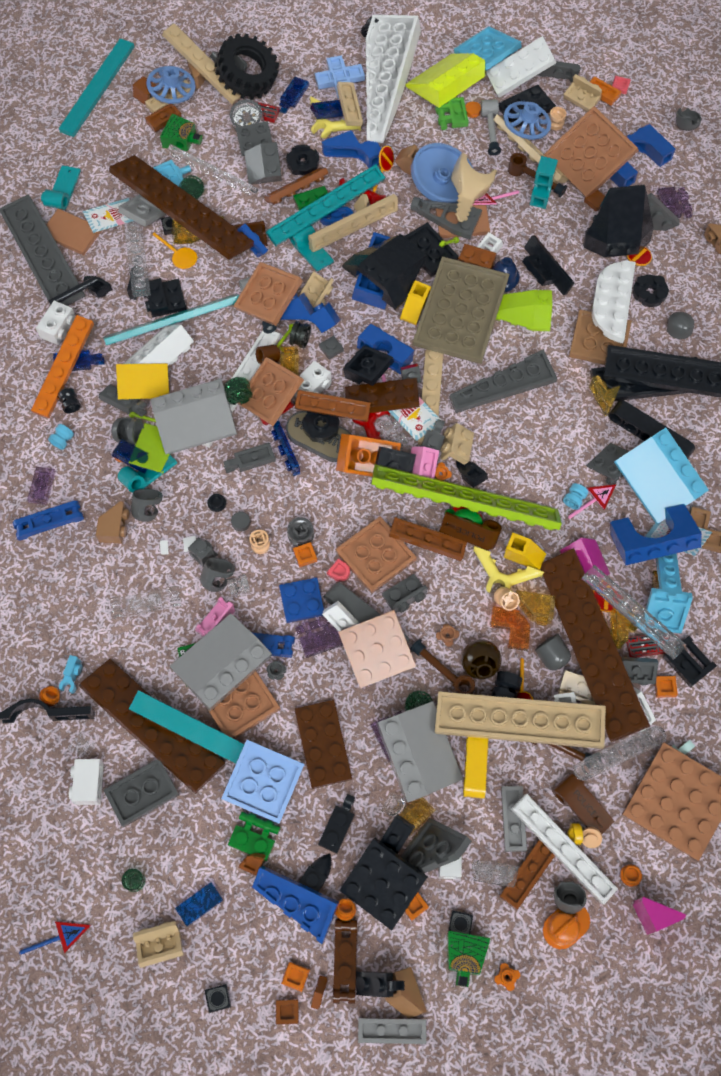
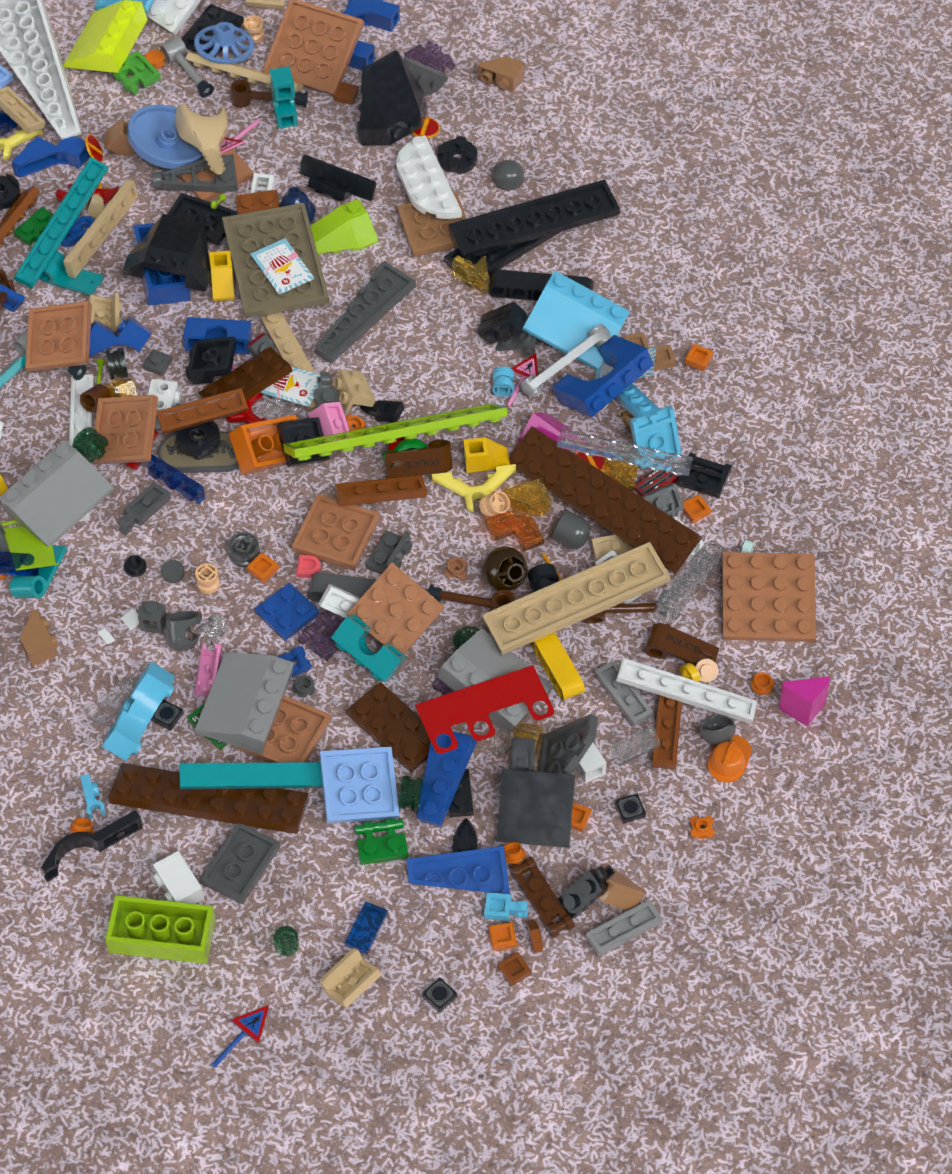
camera: 30 degrees left, 10 degrees down
(48, 817) = (160, 929): none -> lime brick
(143, 498) = (56, 600): dark grey helmet -> none
(143, 623) = (135, 714): none -> medium azure brick
(165, 636) = (167, 715): none -> black tile
(252, 863) = (396, 863): dark orange tile -> none
(297, 811) = (410, 793): none -> clear green wheel
(308, 951) = (500, 907): none -> medium azure plate
(330, 656) = (352, 638): none -> teal arch
(333, 807) = (443, 777): none -> blue wing
(387, 768) = (479, 700): none -> red piece
(462, 318) = (282, 266): none -> sticker
(465, 955) = (651, 828): green torso -> none
(601, 448) = (502, 323): none -> black brick
(669, 498) = (532, 384): none -> piece

